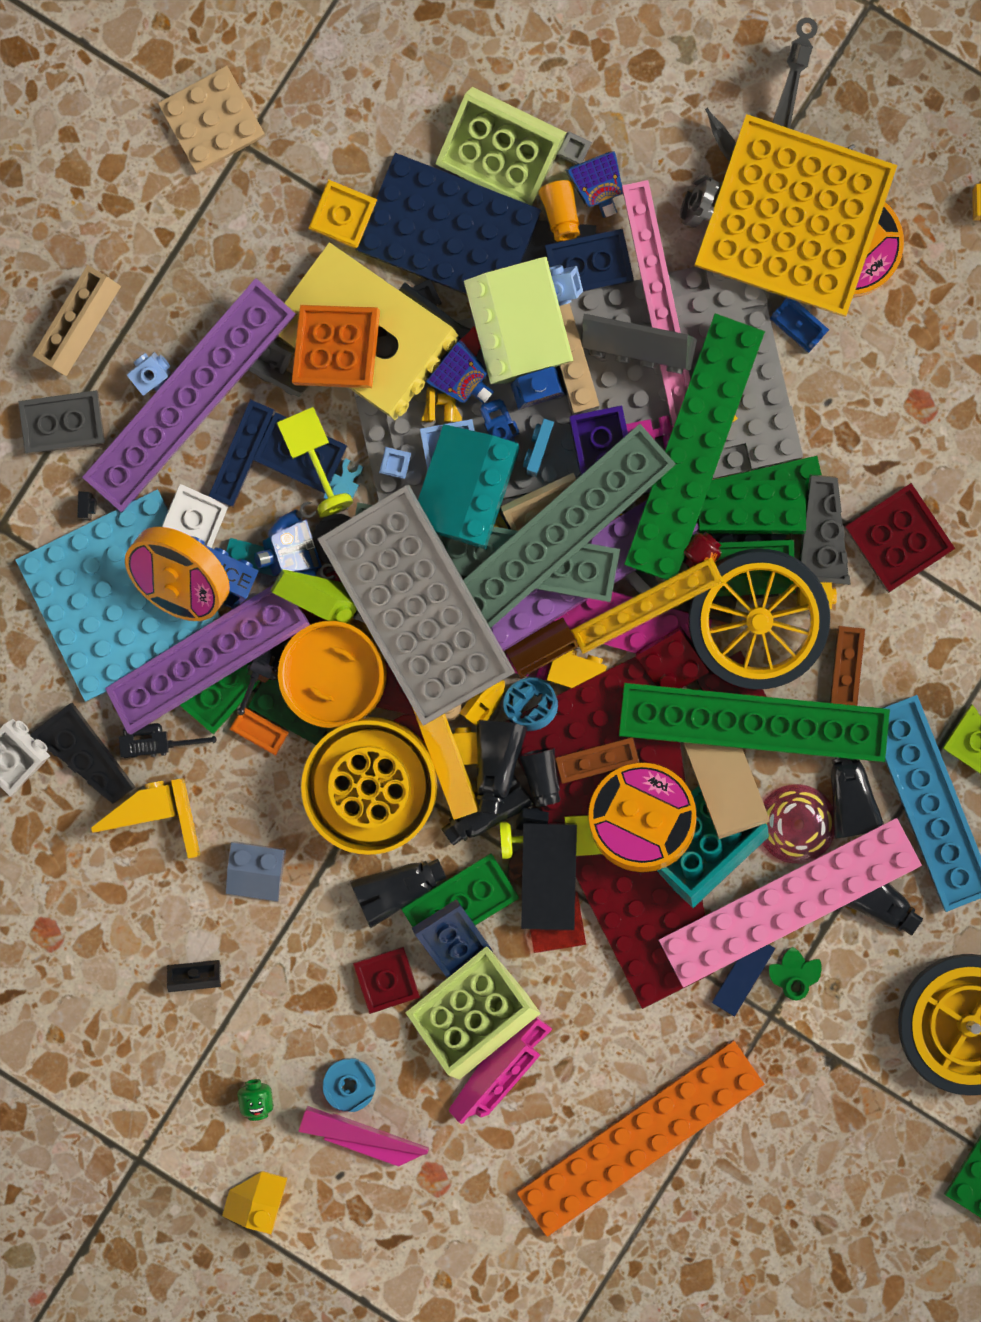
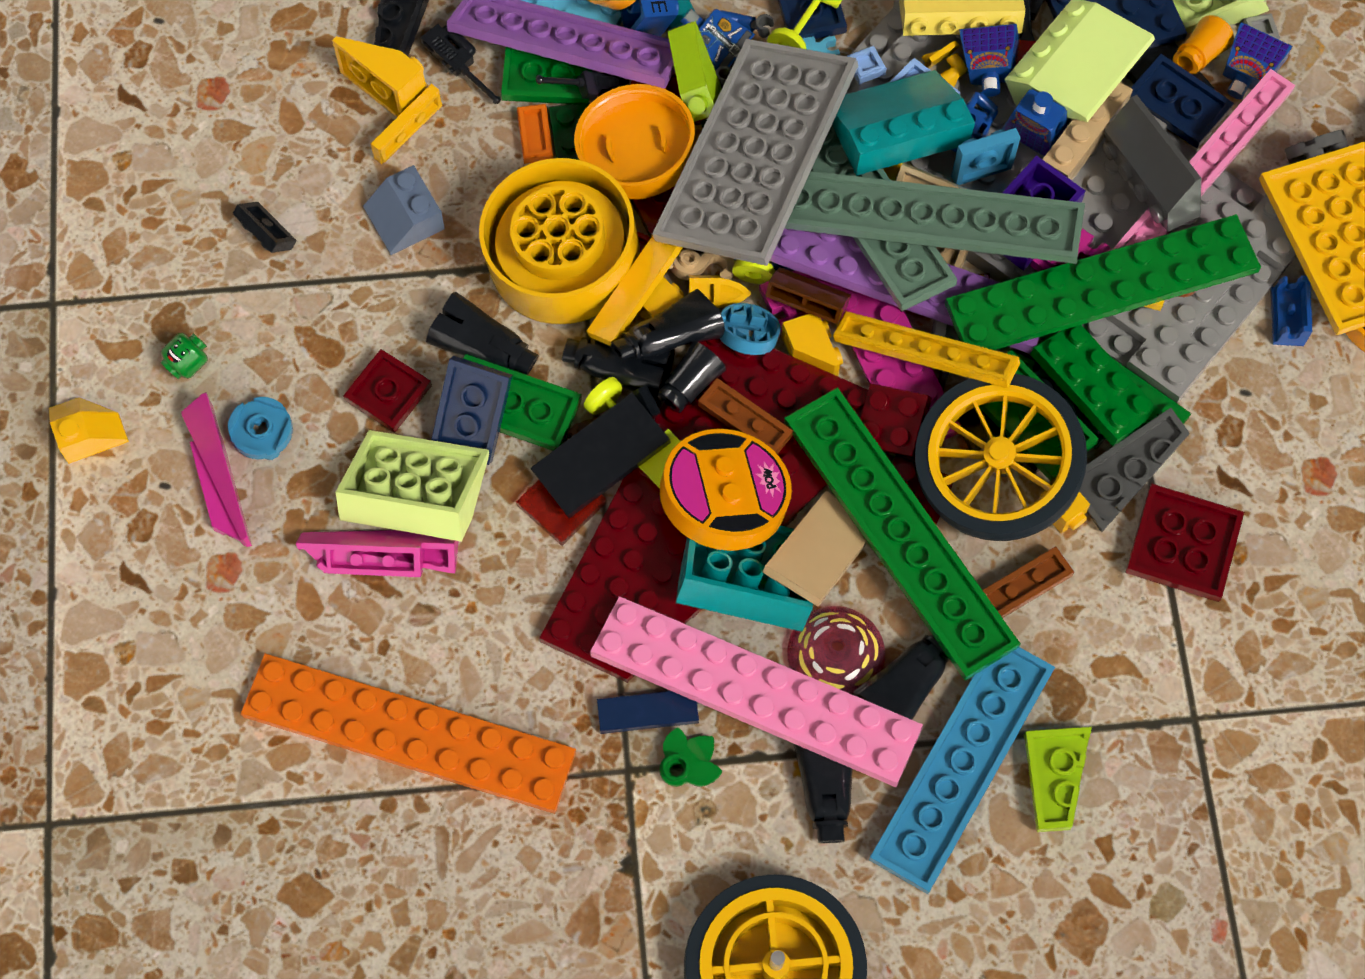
camera: 50 degrees right, 20 degrees down
(566, 283) = (1146, 79): light blue brick -> none
(701, 548) = (1027, 354): dark red head -> none

